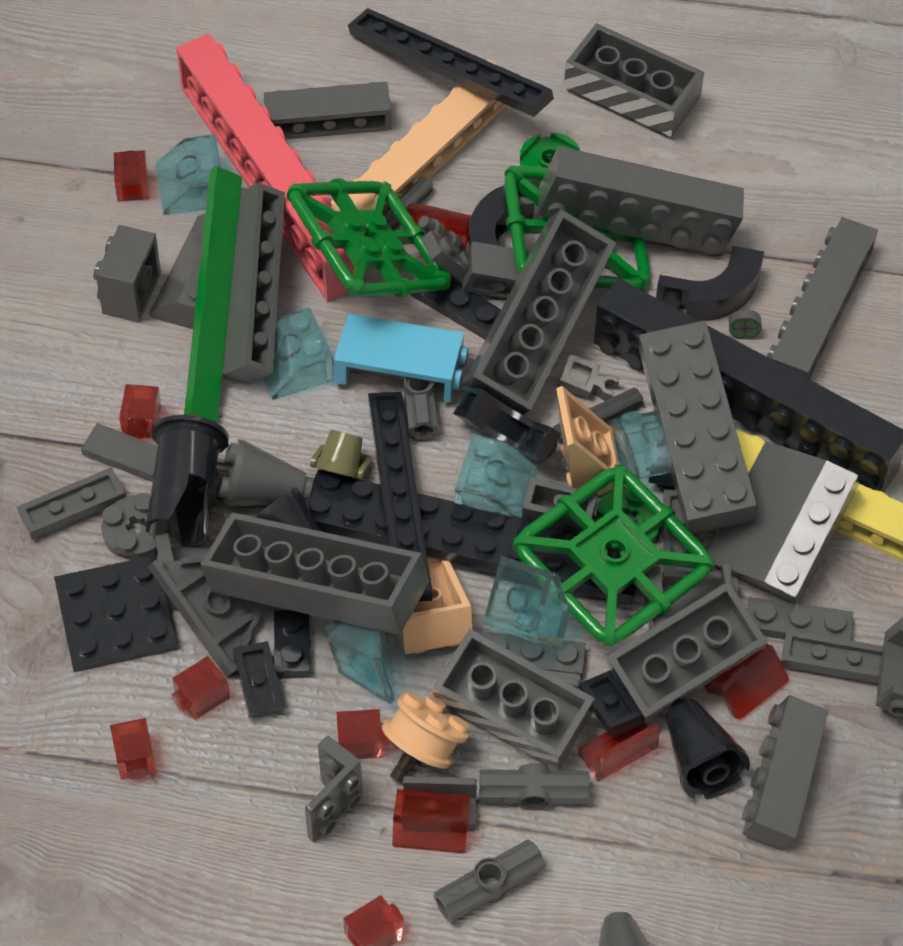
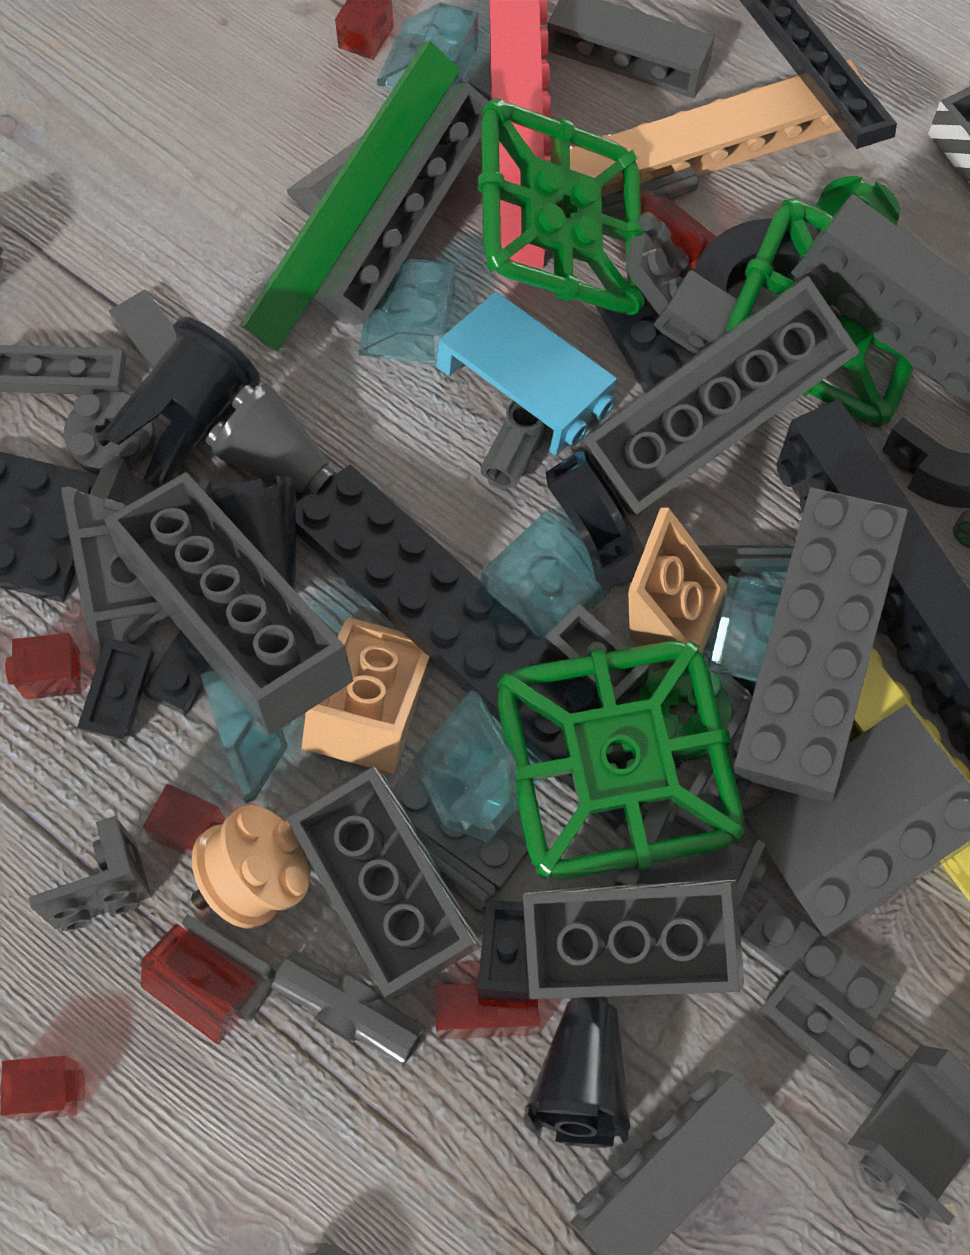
camera: 30 degrees right, 10 degrees up
(127, 273) = (281, 130): dark grey brick -> none
(139, 410) = (198, 294): clear red brick -> none
(342, 456) = (381, 462): olive piece -> none
(397, 476) = (416, 543): black tile -> none
(470, 892) = (181, 1105): dark grey piece -> none
(582, 377) = (732, 501): dark grey plate -> none
(750, 681) = (705, 1019): clear red panel -> none

